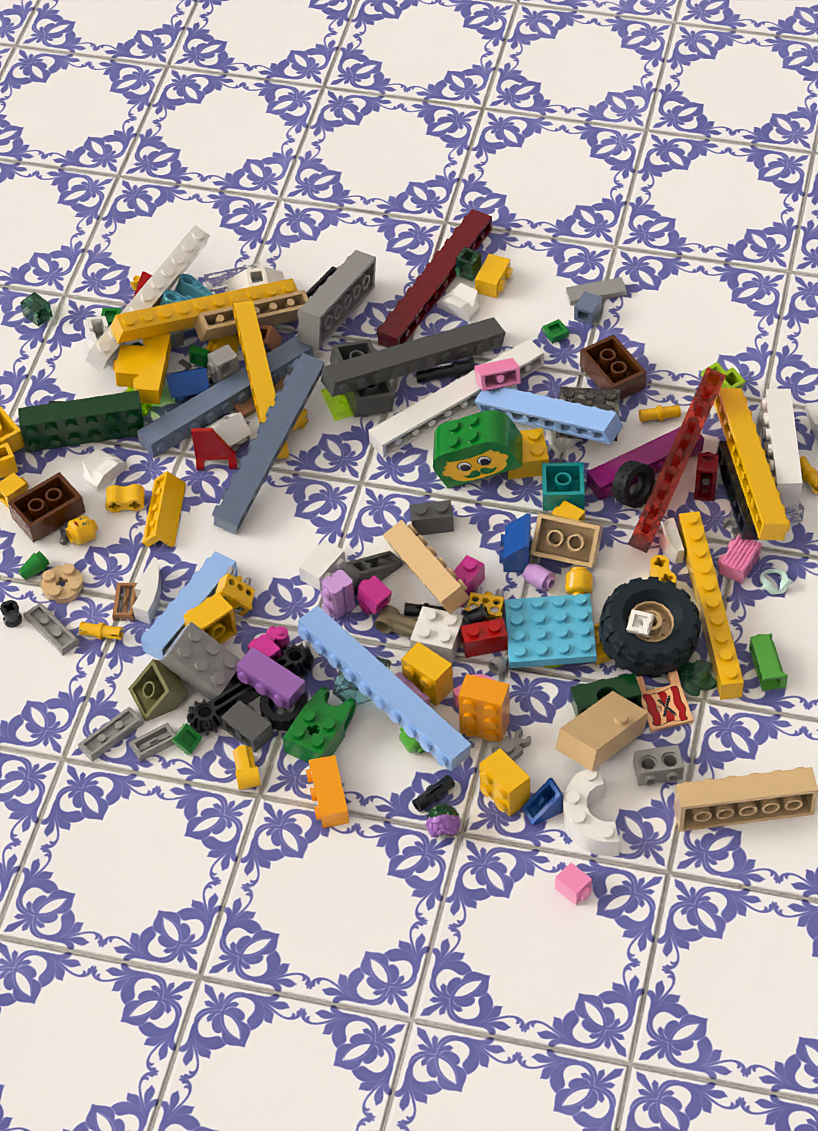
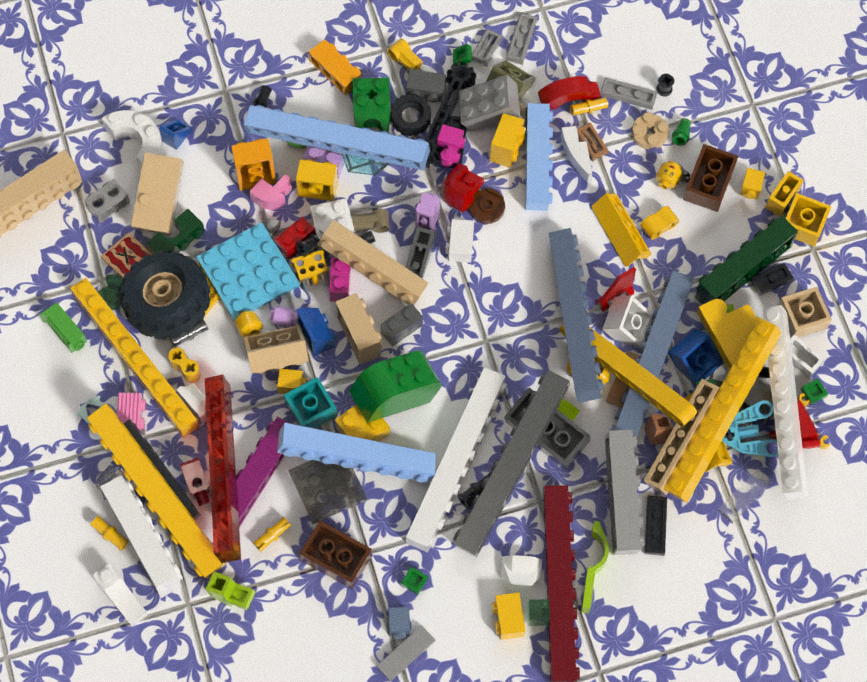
camera: 145 degrees right, 15 degrees up
(65, 367) = (806, 312): none -> tan brick
(102, 468) = (700, 242): white slope -> none
(114, 644) = (568, 90): none -> red arch
(222, 364) = (672, 372): light grey brick -> none
(236, 592) = (508, 177): yellow piece -> none
(254, 277) = (714, 492): white slope -> none
(270, 678) = (427, 111): medium lavender brick -> none
(273, 591) = (487, 206): none -> reddish brown tile
(286, 606) = (460, 187): none -> red brick
(373, 595) = (398, 219): dark pink brick -> none
(400, 276) = (598, 534): none -> lime piece
(442, 820) = (238, 81): medium lavender piece -> none
(475, 523) = (359, 328): none -> tan brick
(497, 374) = (426, 476): bright pink brick -> none
(504, 782) = (209, 124): yellow brick -> none
(514, 746) = (224, 167): light grey plate -> none
(573, 884) = (122, 84): bright pink brick -> none
(623, 480) = (249, 430): black tyre -> none
(640, 623) = (163, 267): white tile -> none

